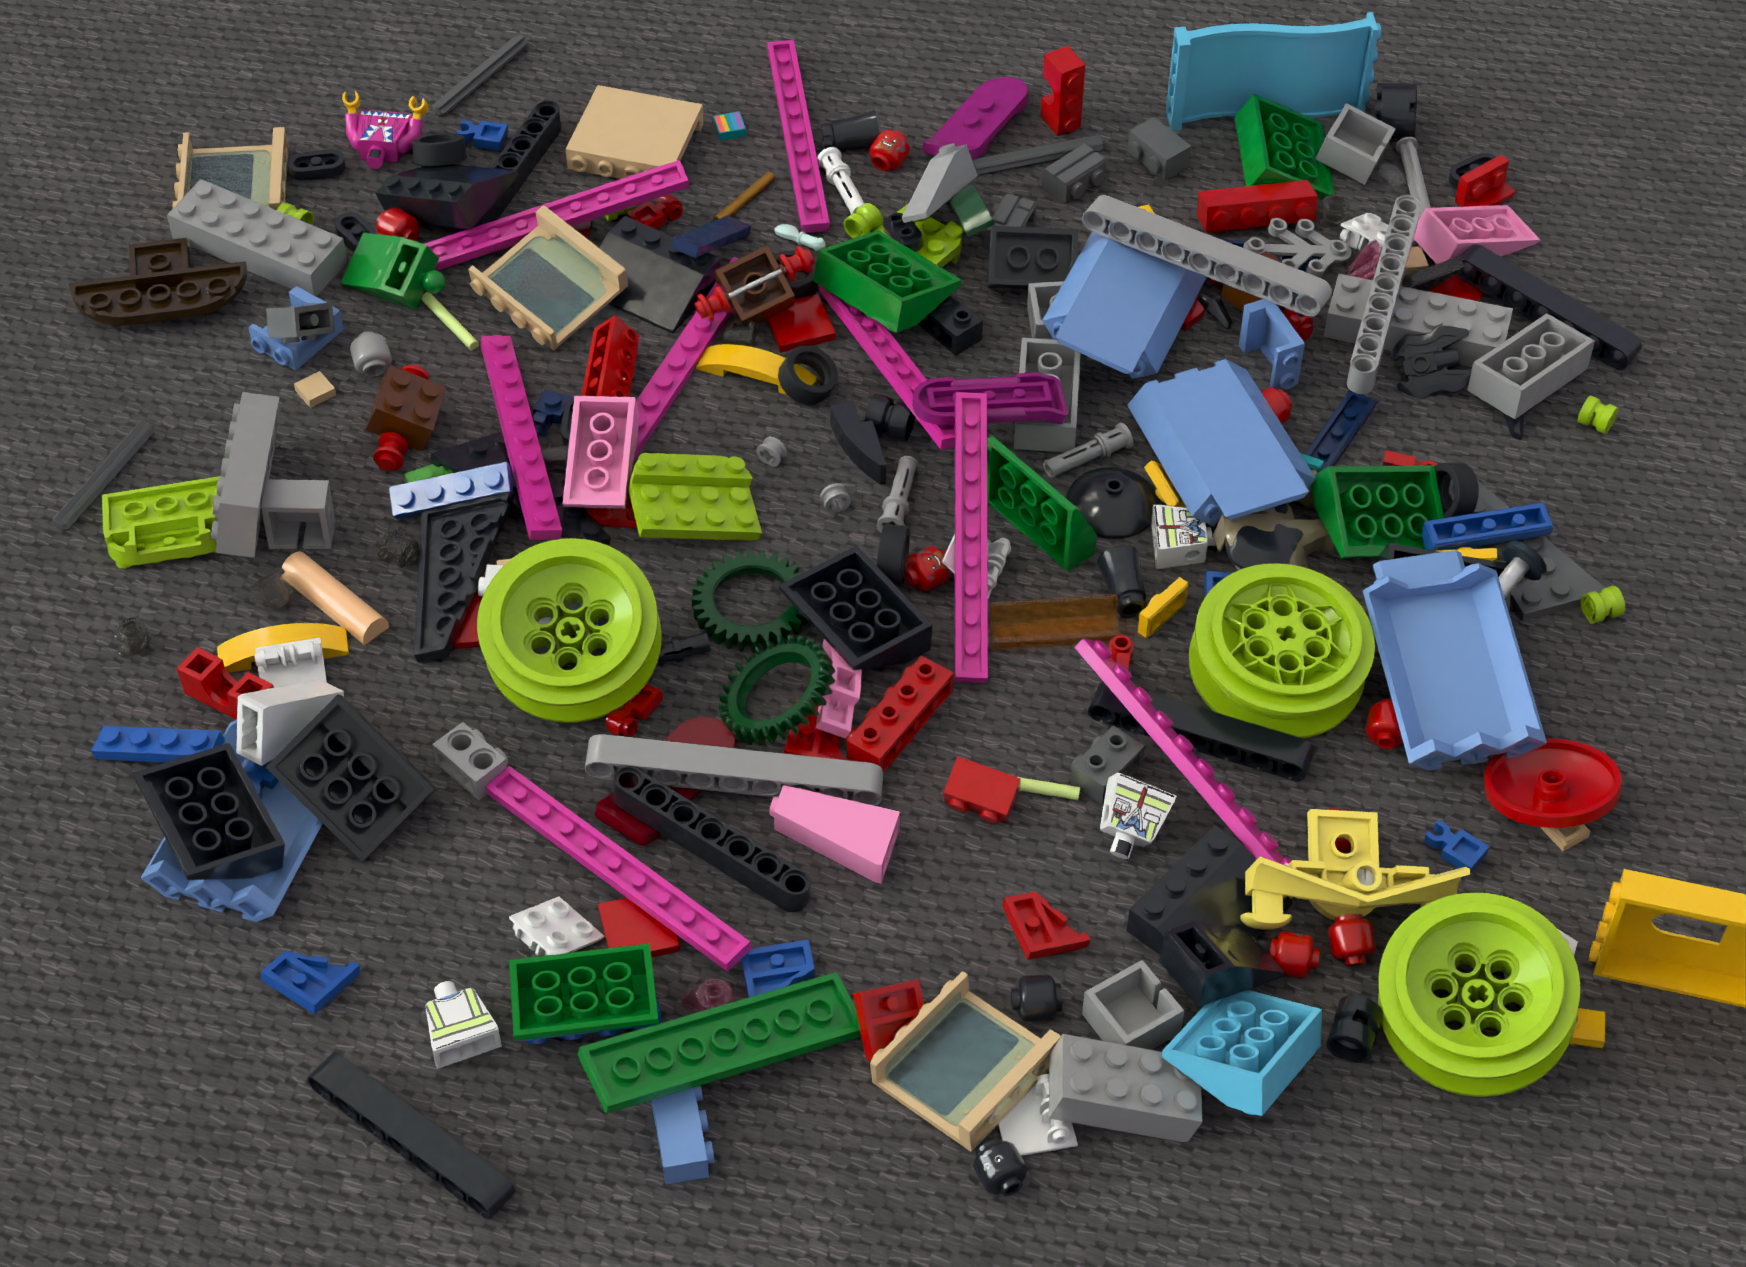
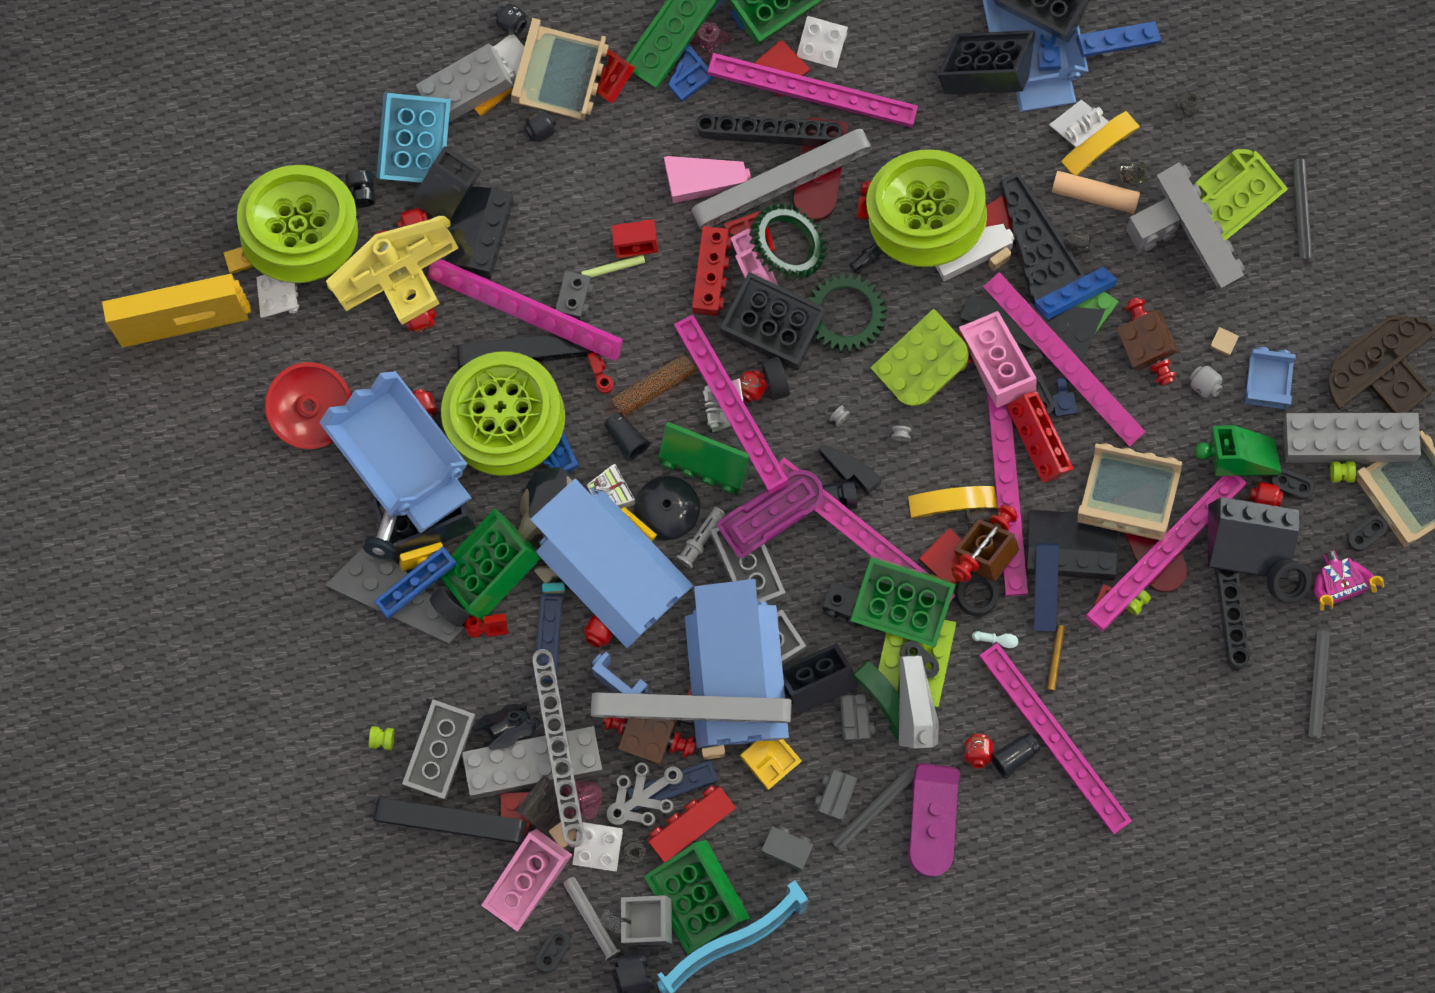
camera: 155 degrees right, 25 degrees up
(209, 682) = (1088, 89): red arch -> none
(277, 715) = (1051, 80): white slope -> none
(300, 321) = (1262, 368): dark grey brick -> none
(450, 321) = (1172, 440): yellowish green bar -> none
(469, 759) = (939, 113): light grey brick -> none
(486, 135) = (1270, 623): blue plate -> none
(631, 132) = (1166, 671): tan panel -> none
(729, 125) = (1109, 725): tile -> none
(799, 390) = (898, 495): black tyre -> none
(831, 169) = (1001, 710): white pin -> none
(863, 221) = (957, 669): lime wheel -> none
(896, 505) = (799, 430): light grey pin -> none
(1040, 927) = (559, 173): red wing -> none
(1066, 77) = (877, 853): red arch -> none
(1125, 1009) = (483, 136): light grey piece -> none
(1133, 813) = (540, 264): torso -> none
(1162, 607) = (595, 429): yellow plate -> none
(1458, 849) = (347, 340): blue plate -> none
(1485, 185) = (536, 929): red bracket -> none
(1600, 605) = (324, 569): lime wheel -> none

